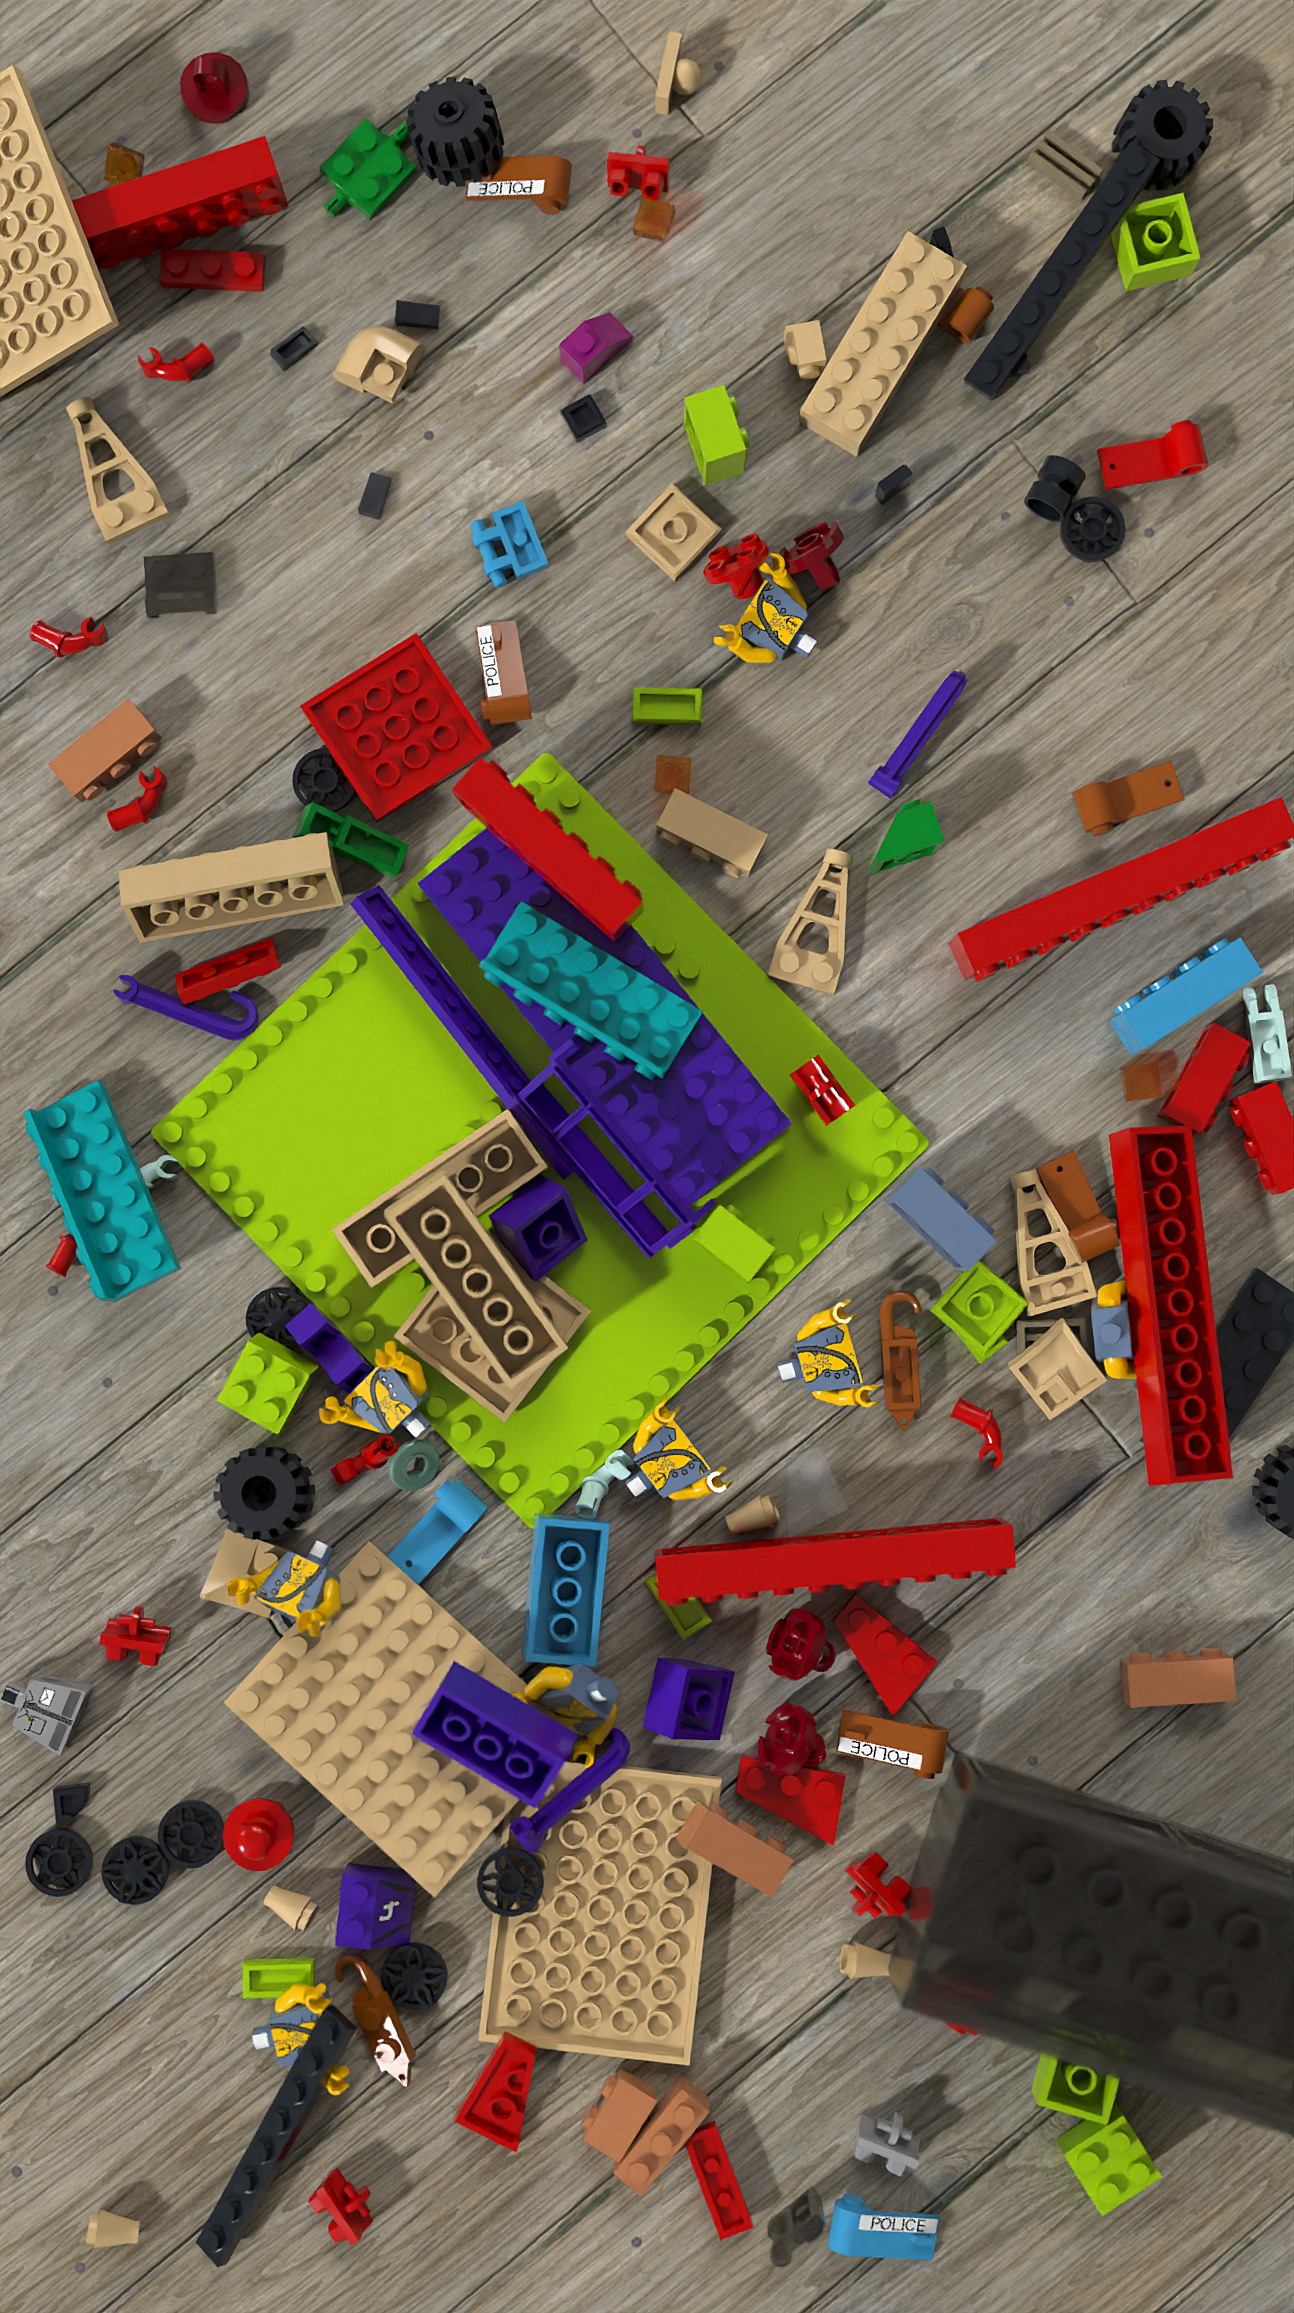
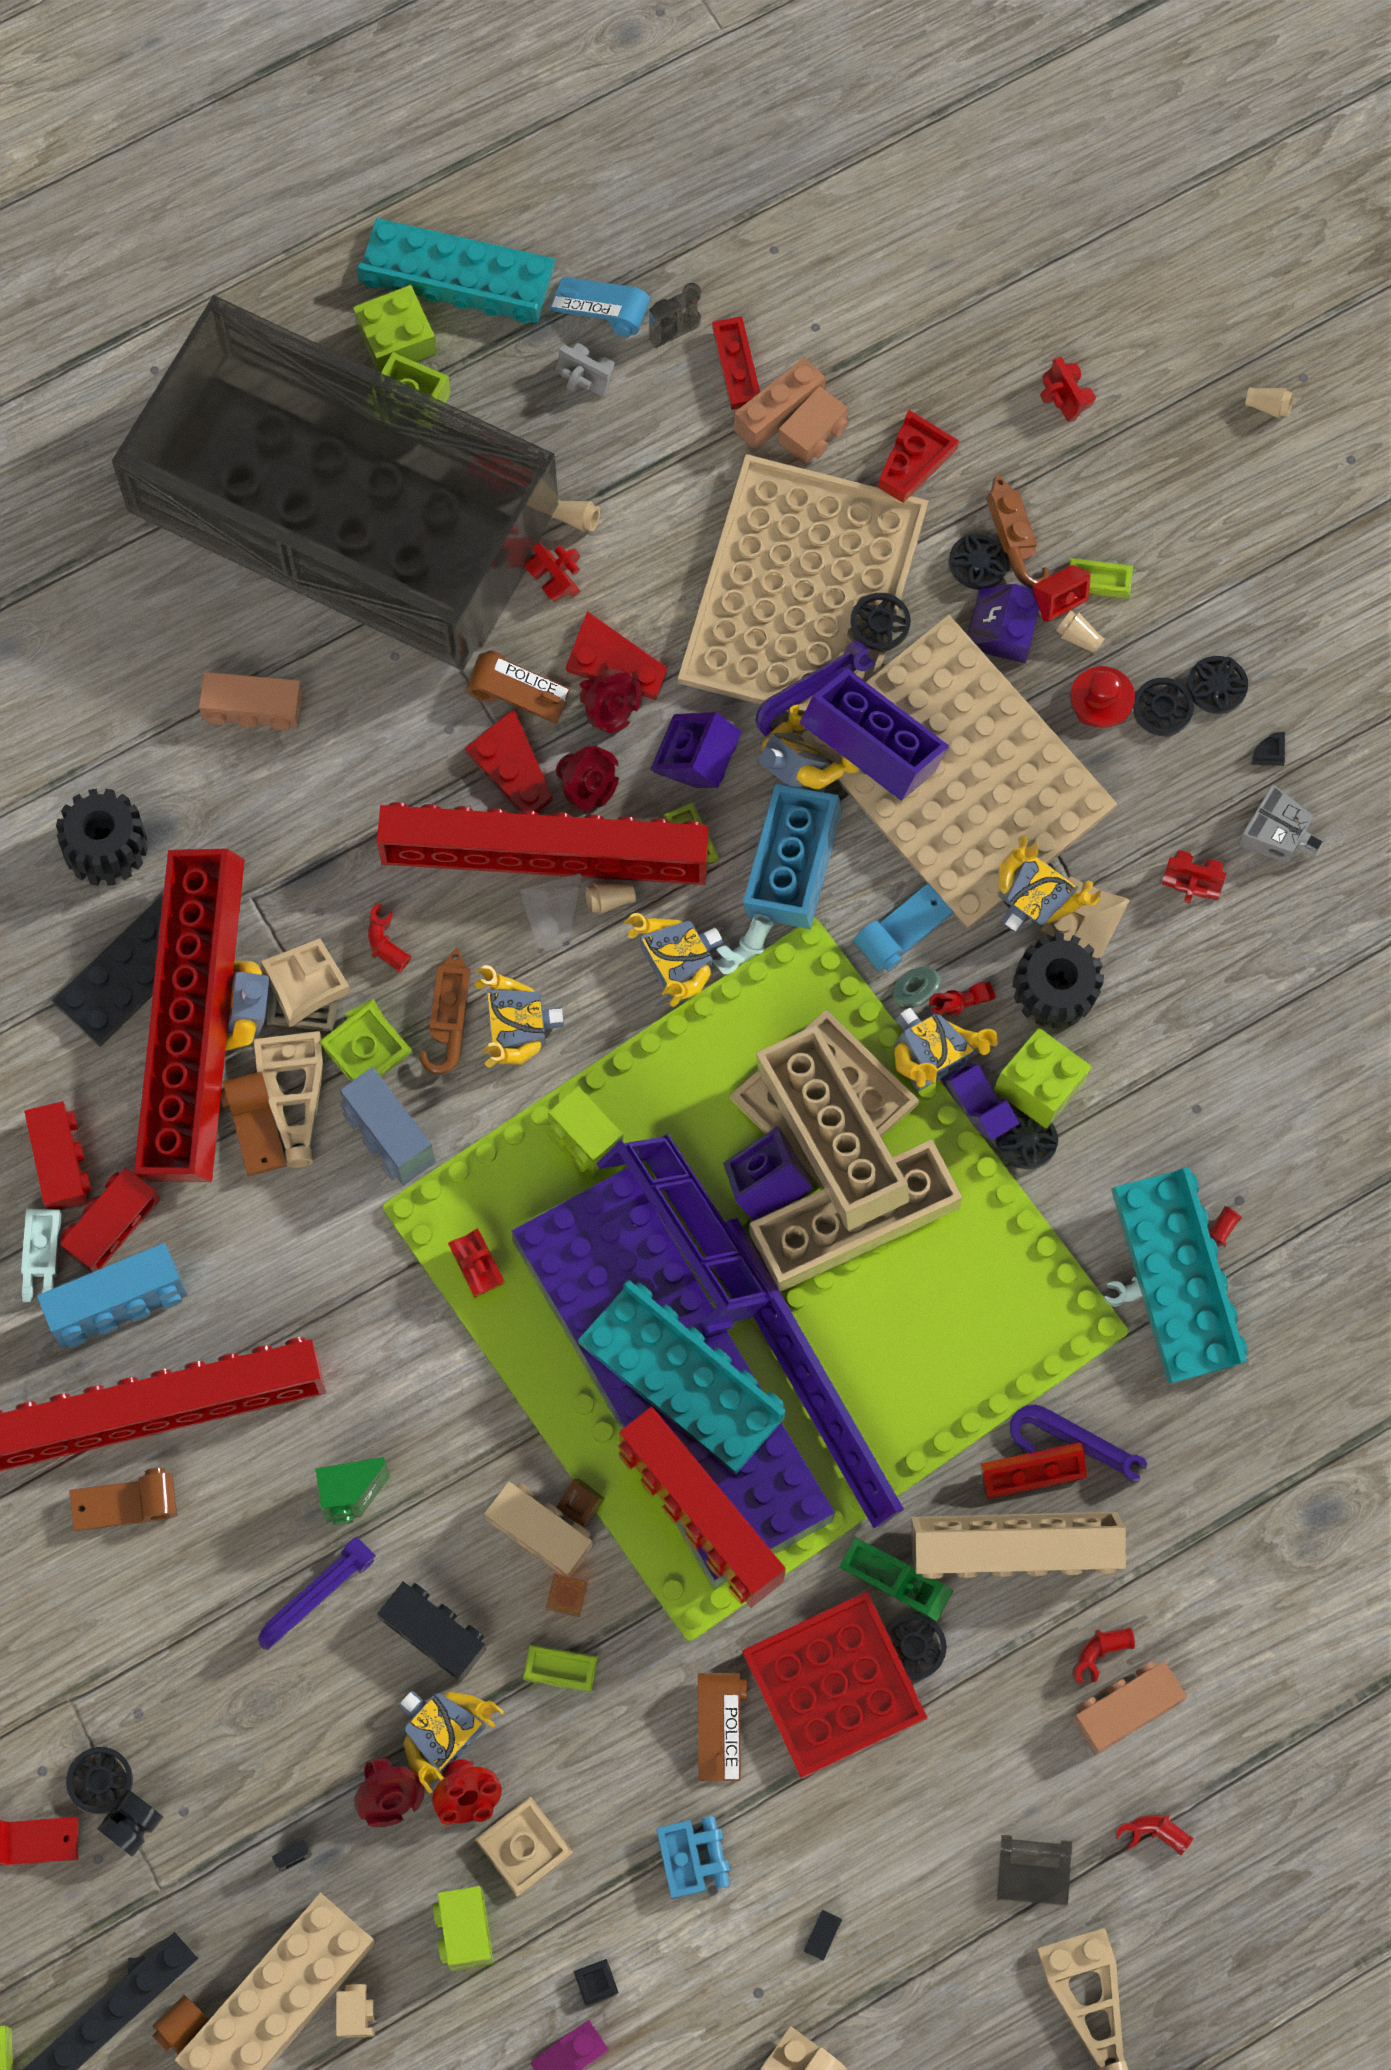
camera: 170 degrees left, 15 degrees down
(59, 1862) = (1285, 701): black wheel -> none
(276, 2135) = (1114, 450): black plate -> none
(292, 2022) = (1080, 526): torso -> none
(315, 1949) = (1062, 591): none -> red slope
(674, 867) = (580, 1502): none -> reddish brown plate
(735, 1847) = (675, 618): nougat brick -> none
(798, 718) = (433, 1630): none -> black brick
(808, 968) = (470, 1389): tan plate -> none
(1053, 2247) = (456, 270): none -> teal bracket
(1141, 1082) = (169, 1229): clear orange plate -> none

